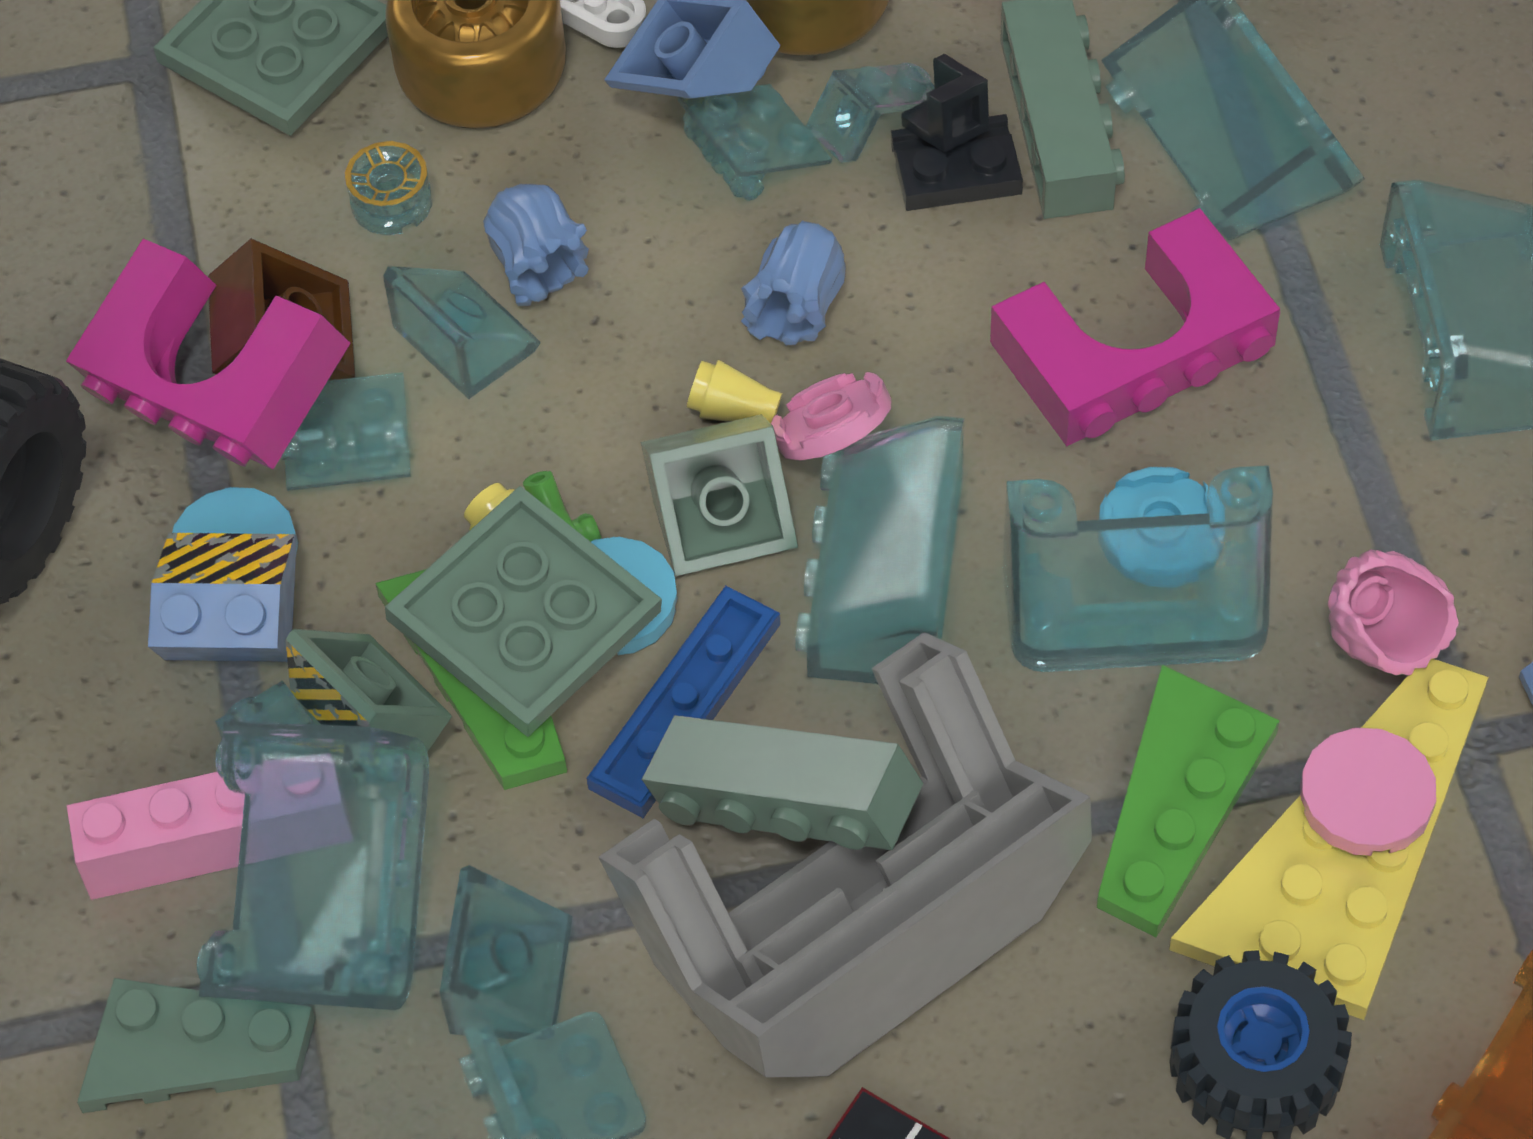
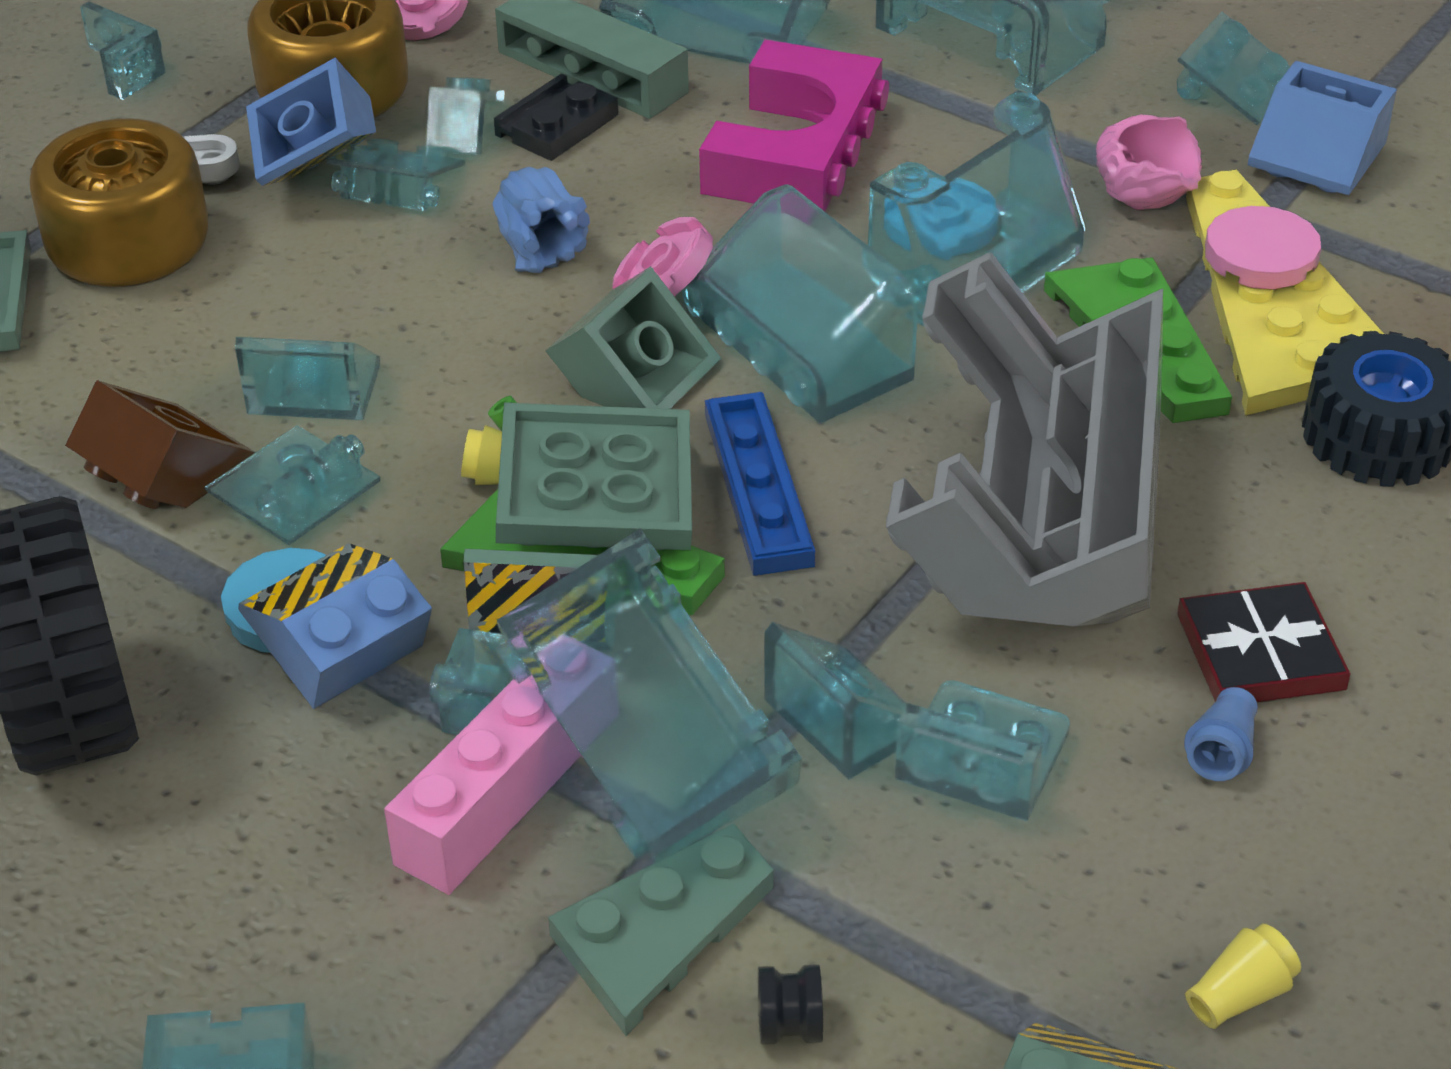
camera: 45 degrees left, 15 degrees down
(247, 406) = (214, 489): dark pink arch -> none
(388, 187) = (148, 330): clear light blue wheel -> none
(535, 241) = (314, 291): medium blue piece -> none
(729, 395) = (563, 301): light yellow cone -> none
(783, 782) = (971, 410): sand green brick -> none
(954, 109) = (526, 73): black panel -> none

